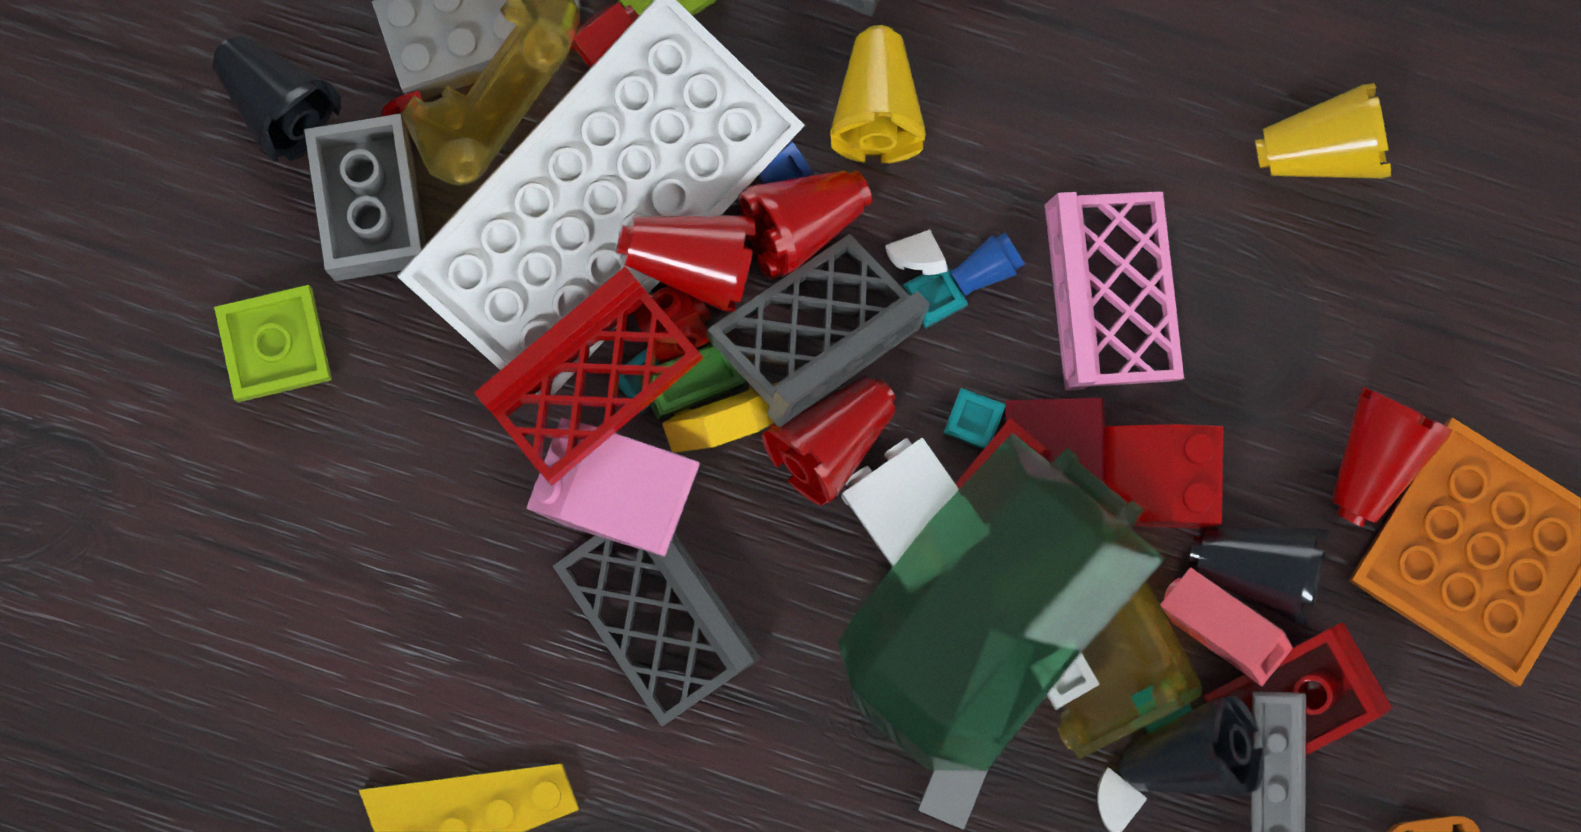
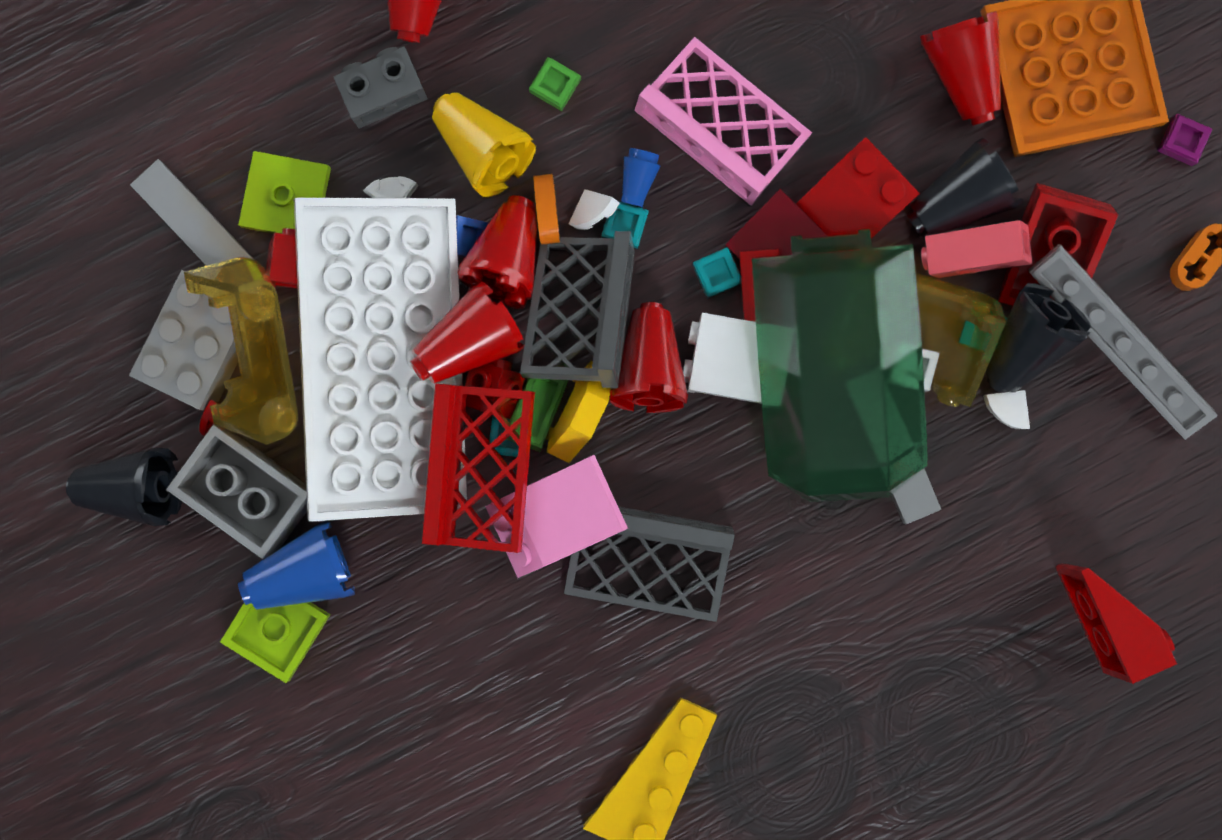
camera: 40 degrees left, 5 degrees up
(344, 314) = (299, 573): none -> blue cone
(760, 63) = (391, 188): none -> white tile
(877, 213) = (546, 209): none -> orange beam
(996, 112) = (555, 83): none -> bright green tile
(1522, 720) = (1184, 140): none -> magenta tile

